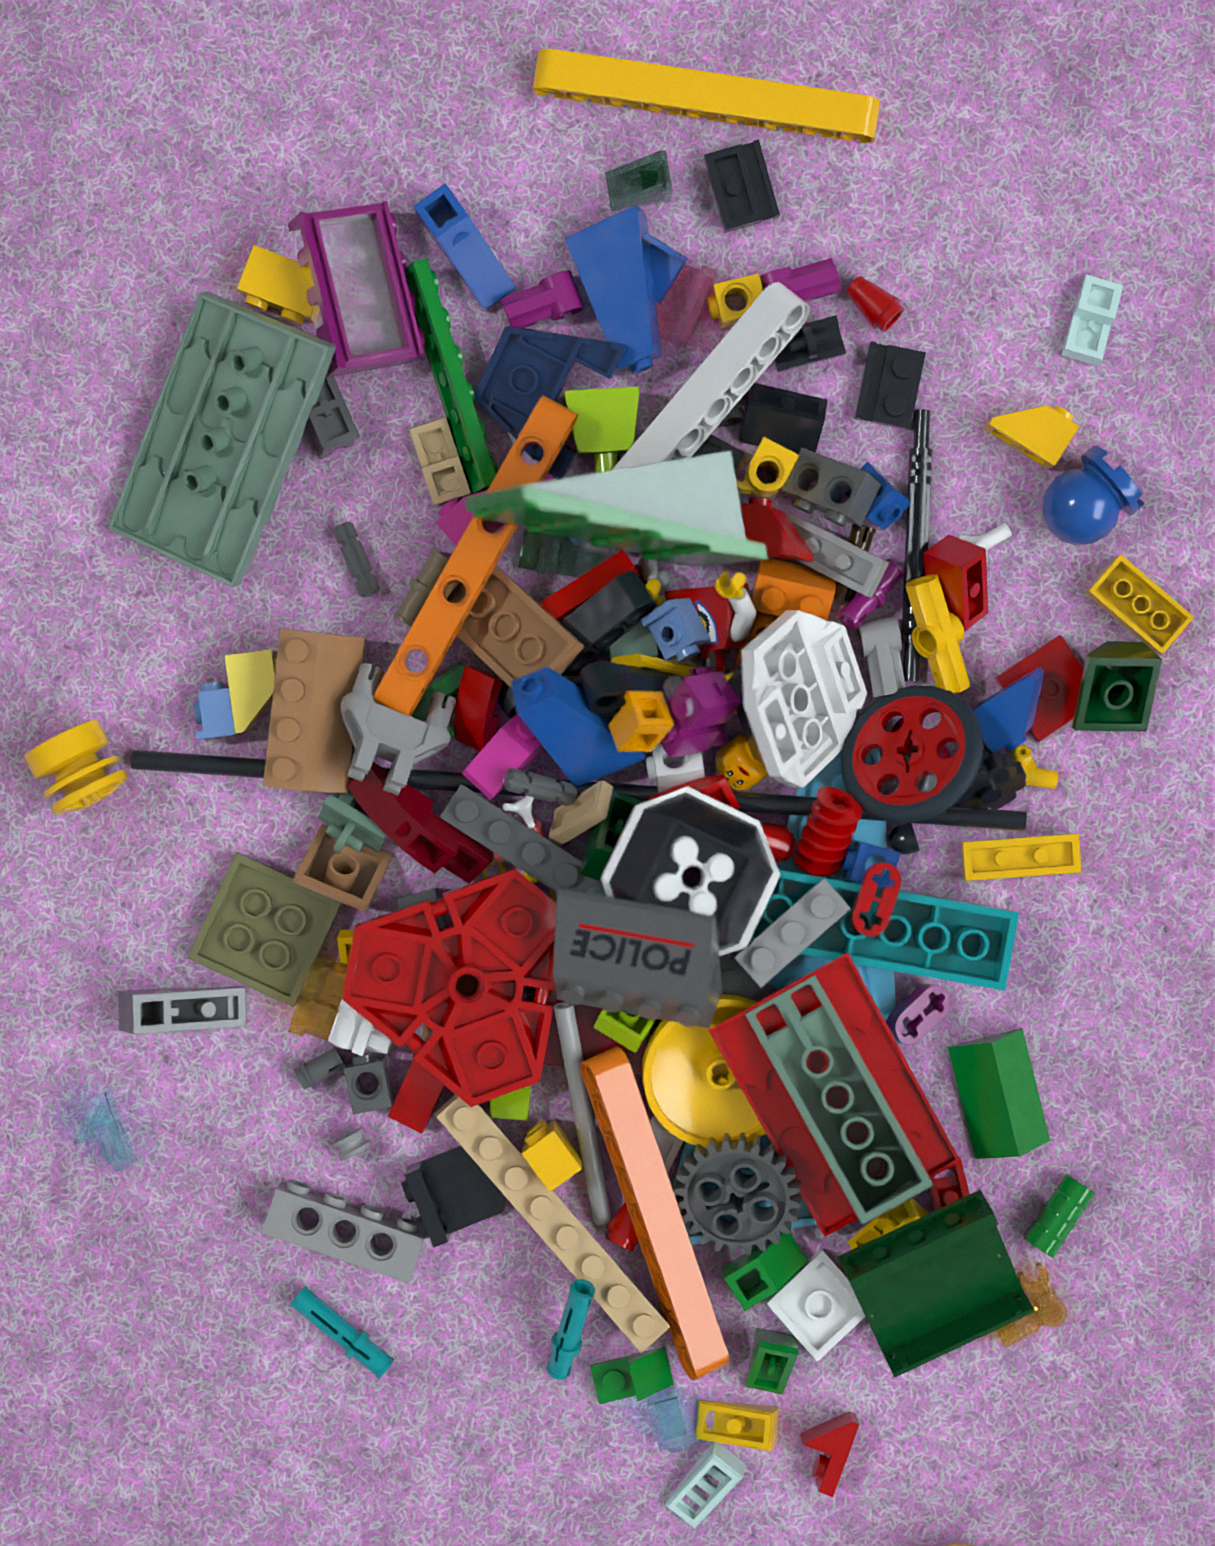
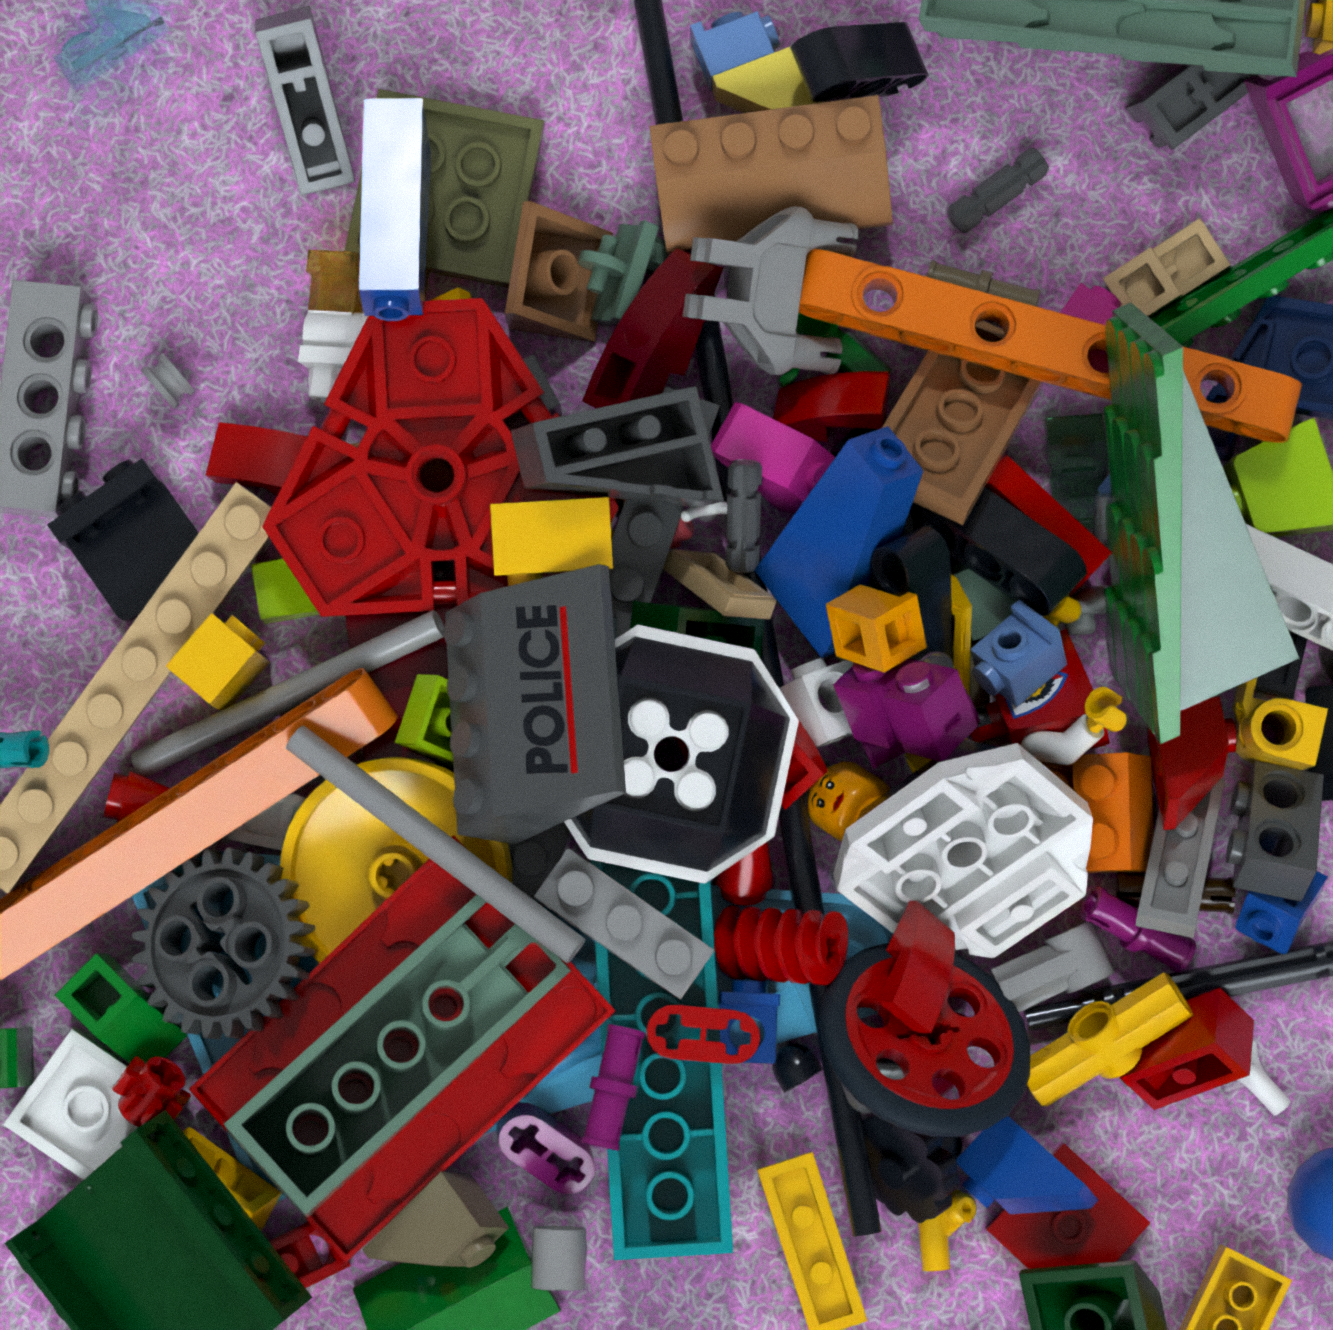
camera: 75 degrees right, 5 degrees down
(249, 633) = (858, 61): none -> black beam
(281, 971) = (394, 208): none -> slope
(319, 1068) = (265, 310): dark grey pin -> none
(362, 1099) = (237, 372): dark grey brick -> none
(481, 857) = (627, 450): none -> dark grey wedge
(527, 919) = (550, 537): none -> yellow brick
(711, 1044) = (435, 844): none -> light grey piece
(820, 1261) = (150, 1090): none -> red gear
(872, 747) = (922, 968): none -> red slope
(896, 965) = (613, 1087): none -> magenta pin
(953, 1093) = (442, 1226): none -> dark tan slope
(992, 1024) = (558, 1258): none -> light grey piece

